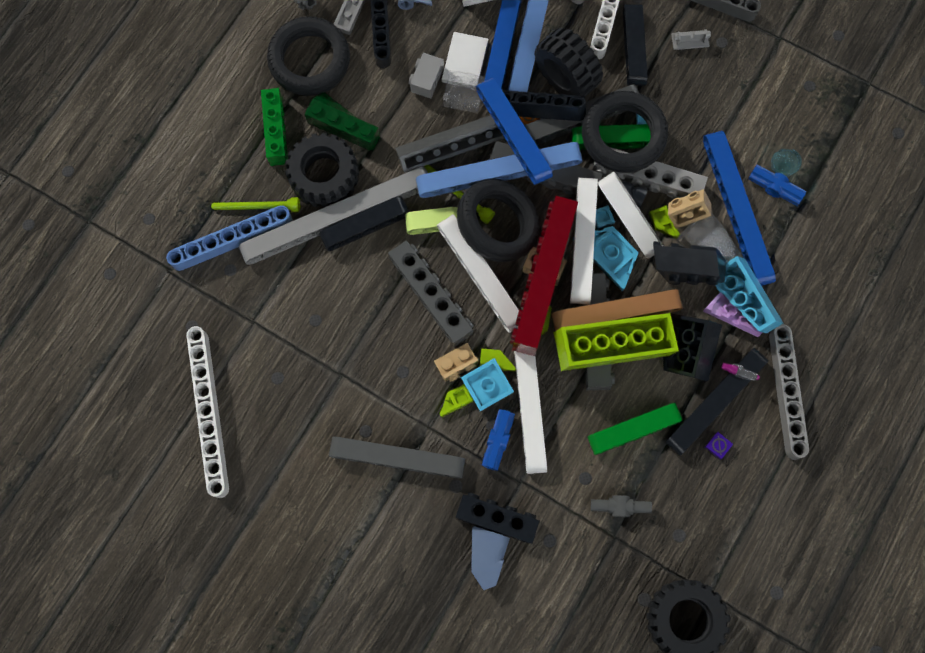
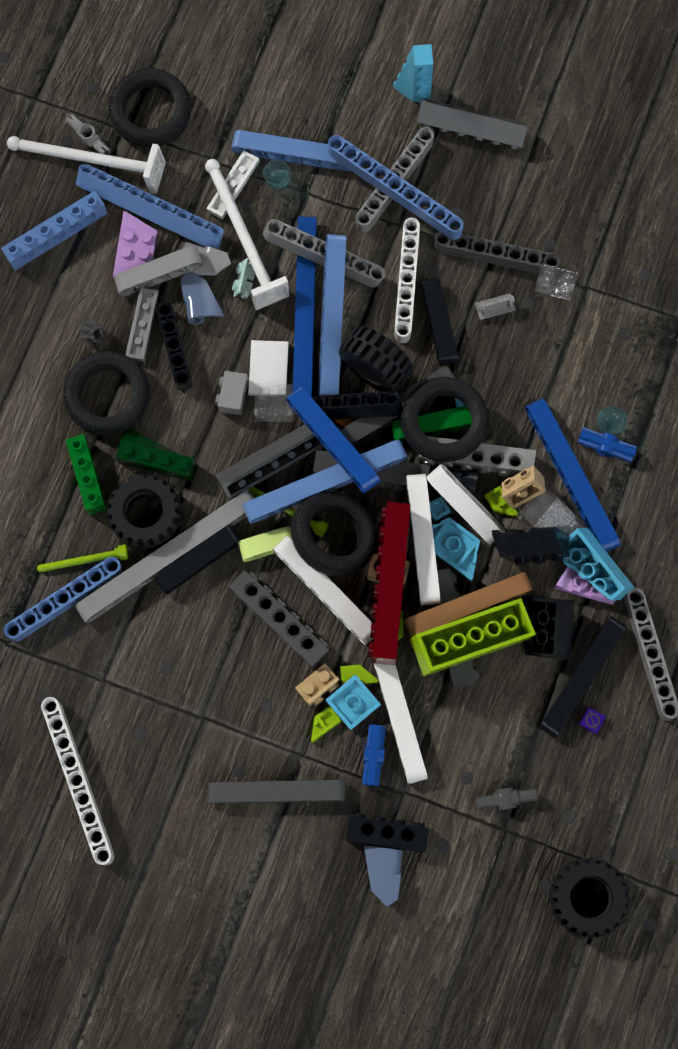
camera: 10 degrees left, 0 degrees up
(635, 428) = (506, 719): green beam -> none
(739, 370) = (600, 643): piece -> none
(753, 24) = (556, 281): none -> clear hinge

